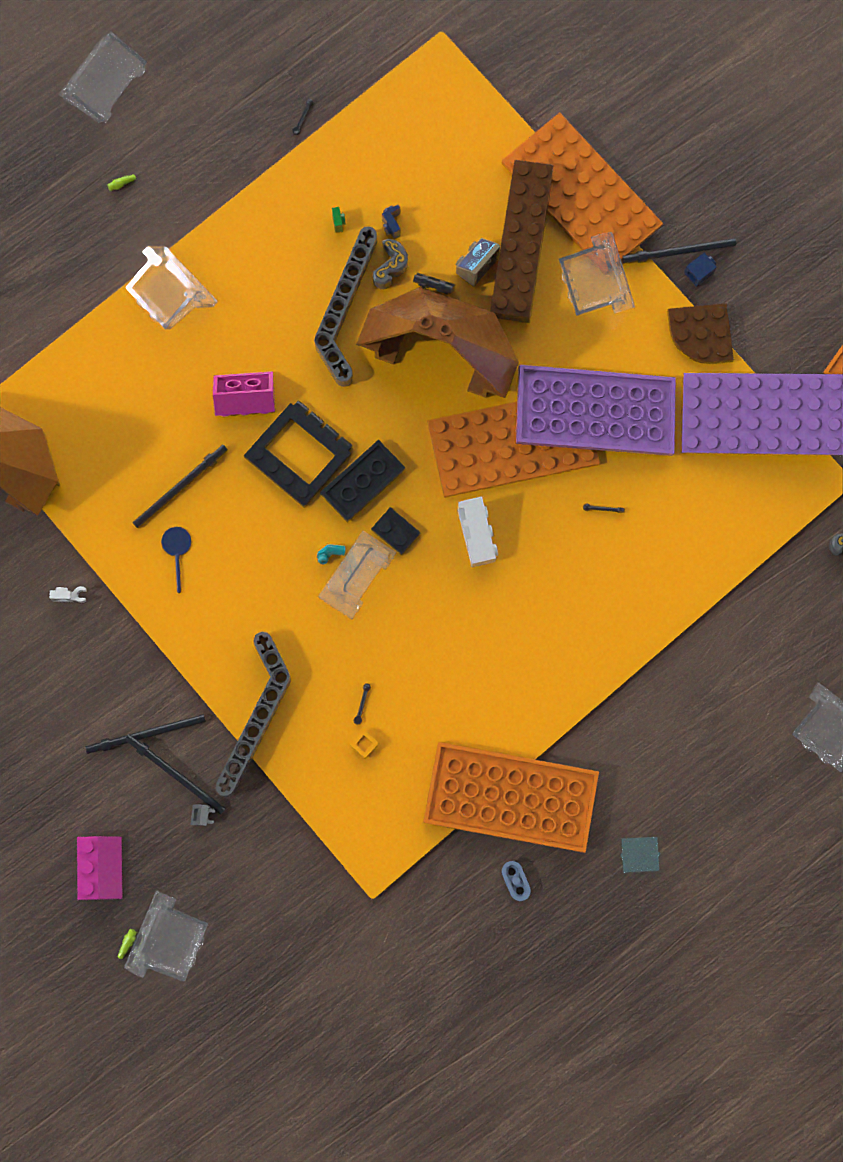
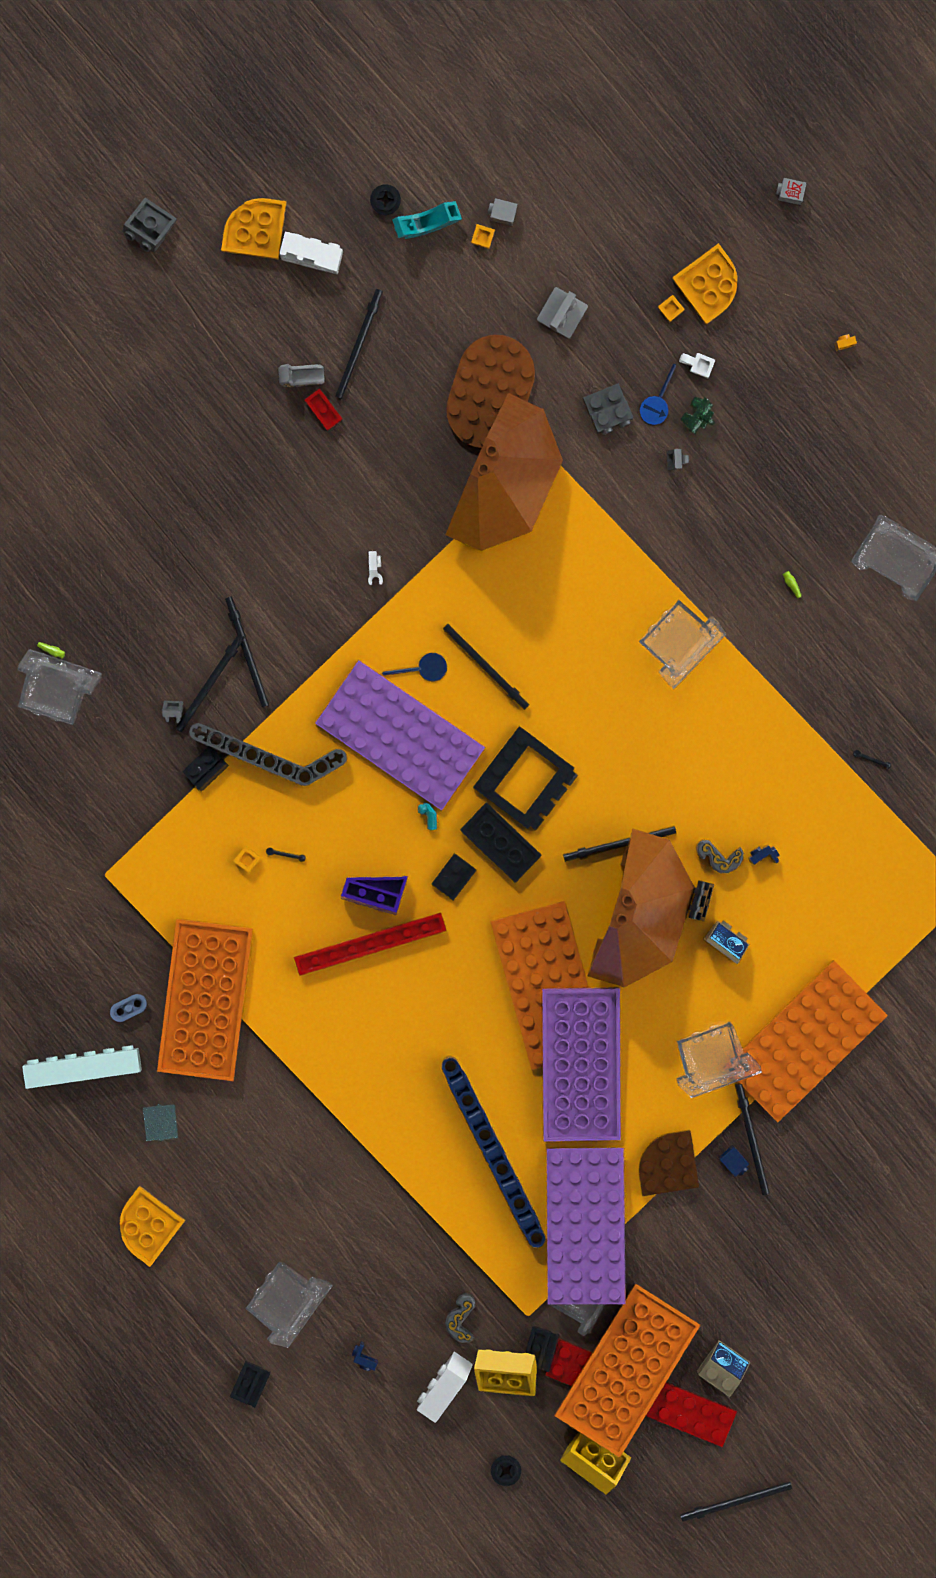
camera: 90 degrees right, 10 degrees up
(99, 868) = (118, 619): dark pink slope -> none
(243, 393) = (580, 722): dark pink slope -> none
(244, 578) = (400, 735): none -> medium lavender plate
(265, 783) = (205, 768): none -> black plate
(338, 219) = (763, 802): green plate -> none
(345, 300) = (680, 814): dark grey beam -> none
(356, 574) = (409, 843): clear windscreen -> none
(378, 398) = (583, 853): none -> black bar
(408, 608) = (375, 892): none -> dark purple wedge
(461, 620) = (370, 943): none -> red plate
(477, 532) = (454, 955): white wedge -> none
(522, 240) = (748, 984): reddish brown brick -> none
(578, 935) = (81, 1068): none -> light aqua brick
(587, 507) = (488, 1059): black hinge -> none
(683, 505) = (493, 1152): none -> dark blue beam
(750, 873) = (147, 1225): none -> light orange plate

